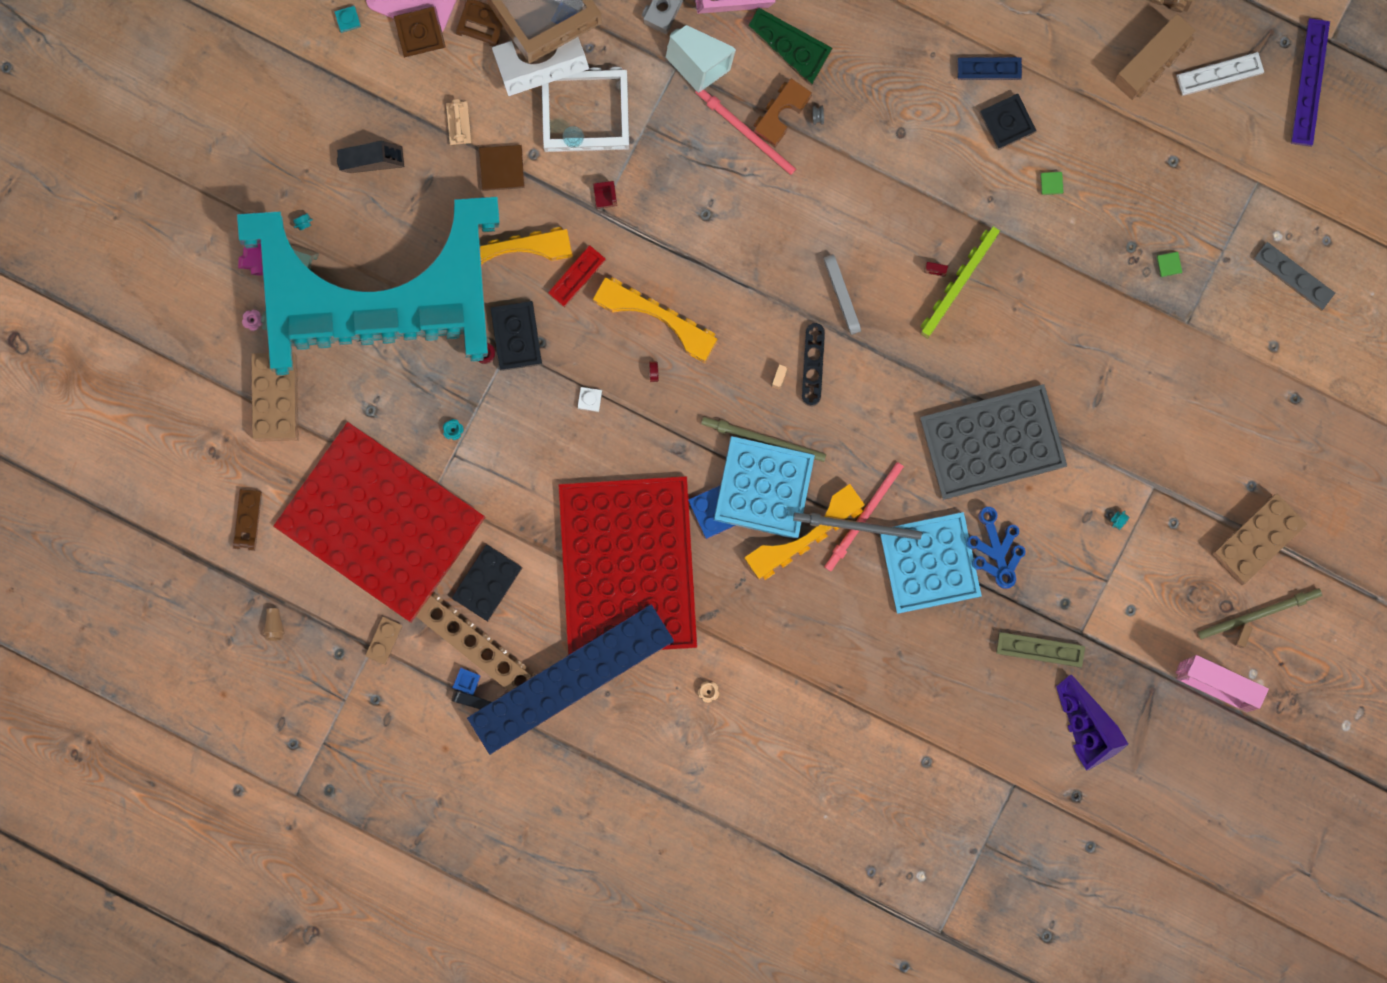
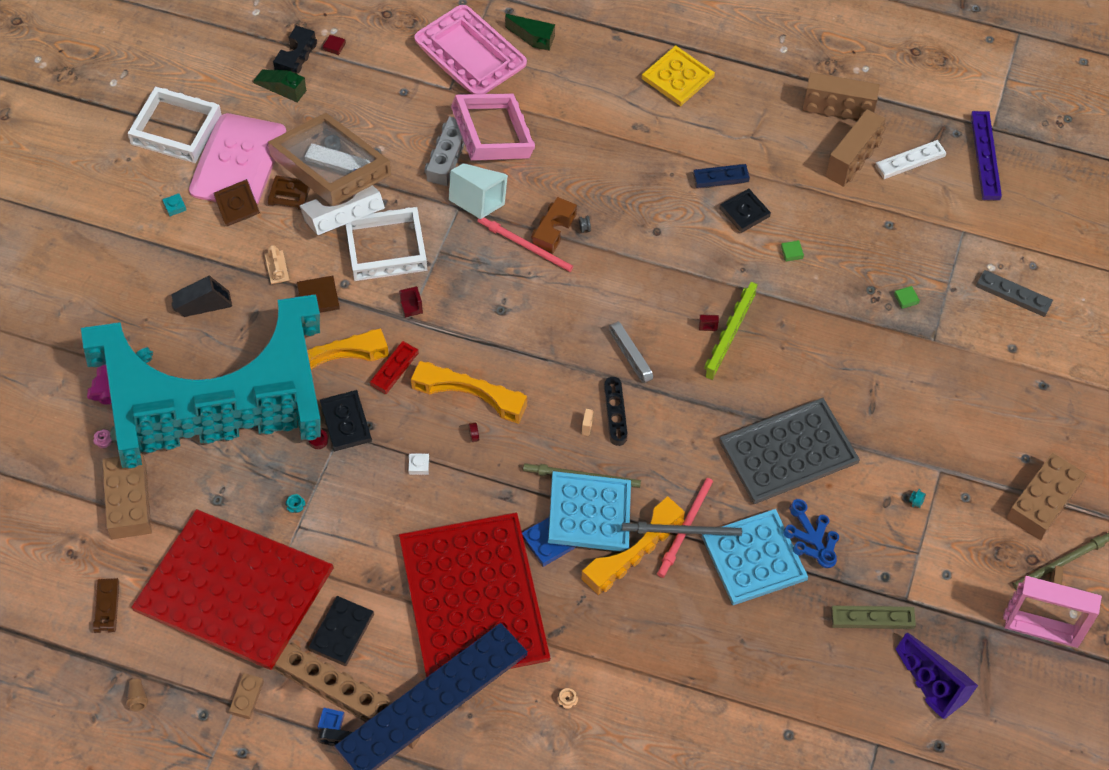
camera: 15 degrees left, 25 degrees down
(573, 137) = (377, 257): clear light blue plate -> none
(794, 46) = (556, 179): dark green wing -> none

